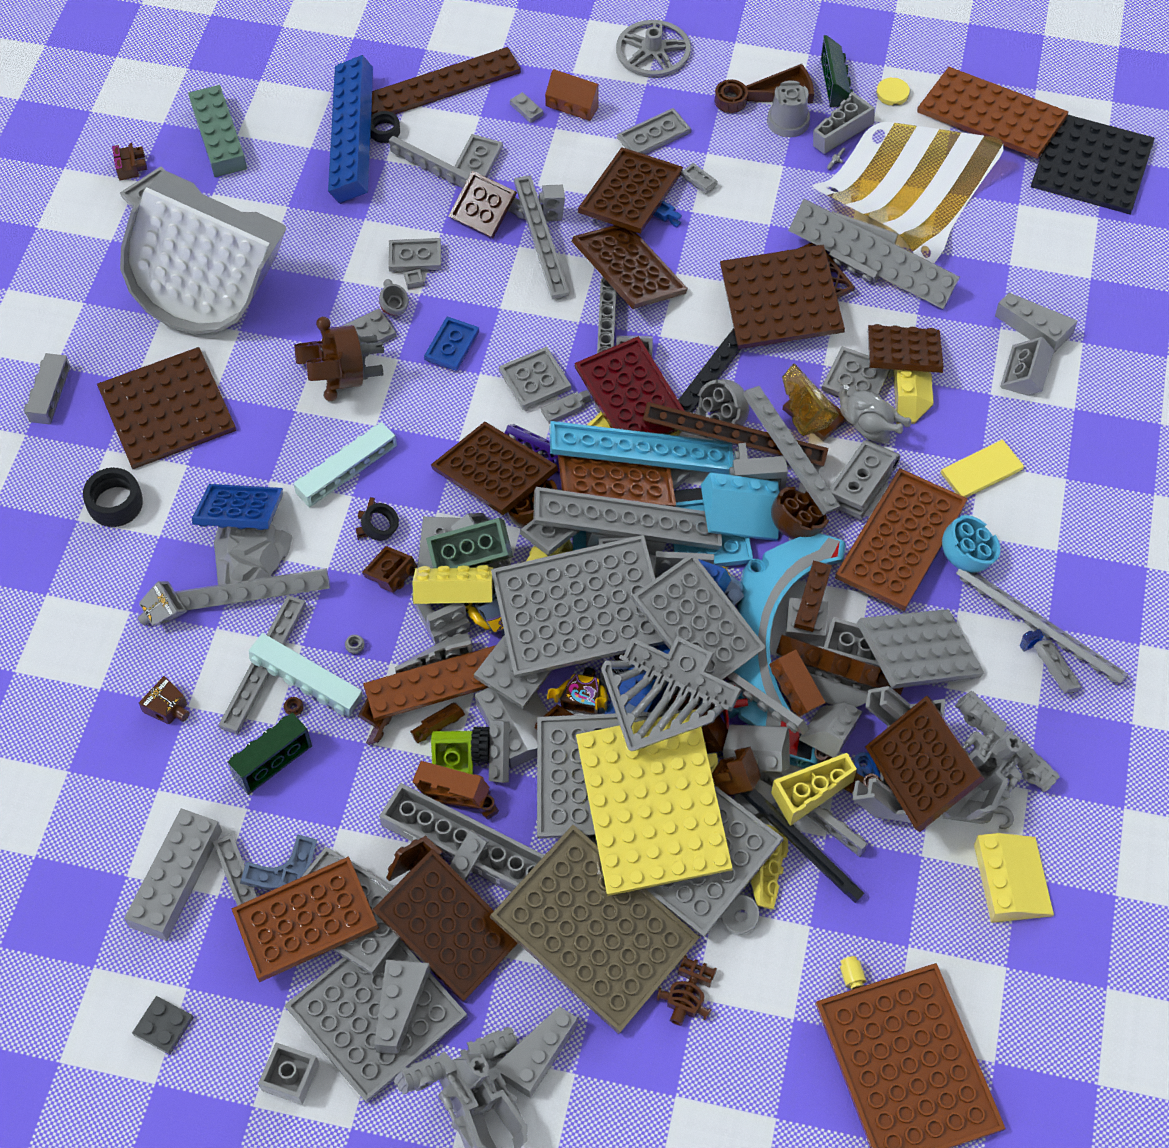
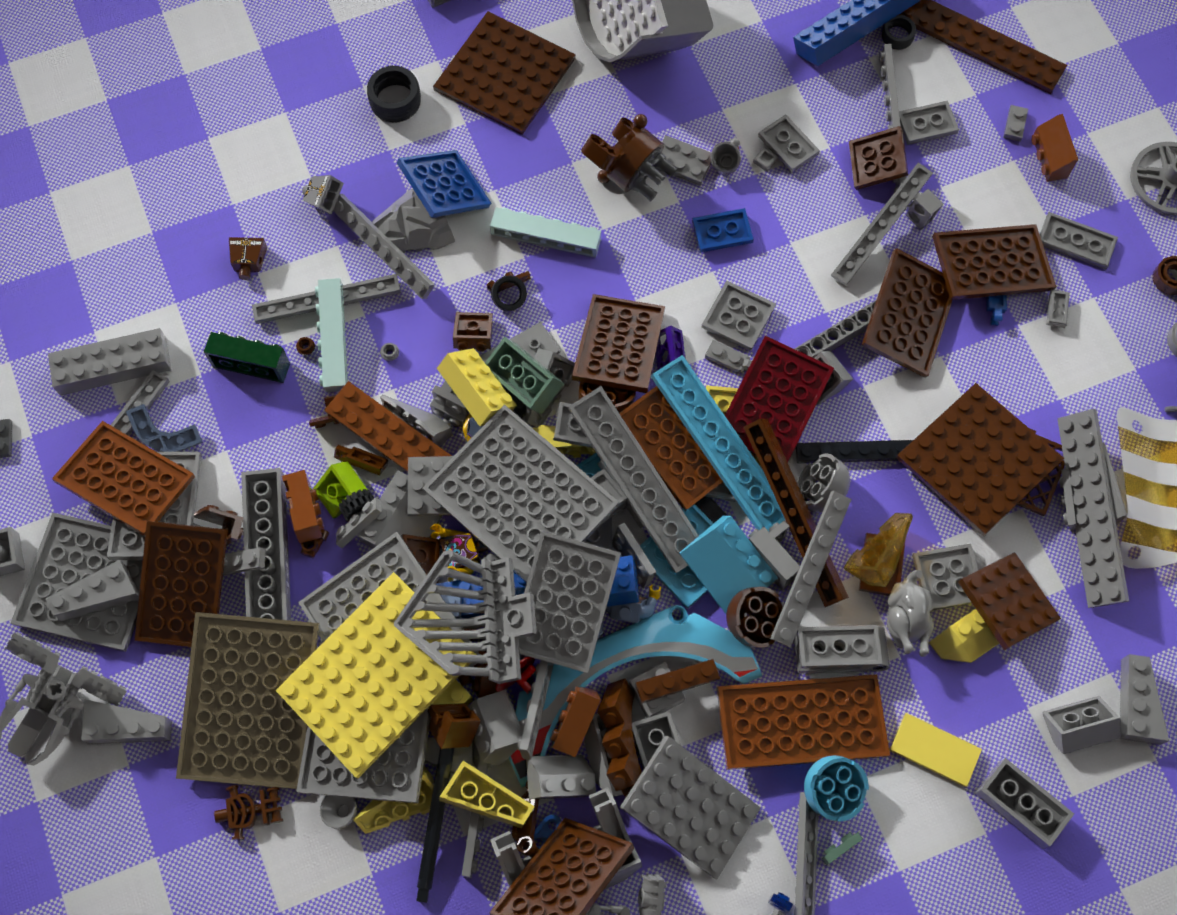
camera: 55 degrees right, 10 degrees up
(1017, 578) = (834, 852): none -> sand green plate
(1062, 437) = (1024, 803): none -> light grey brick

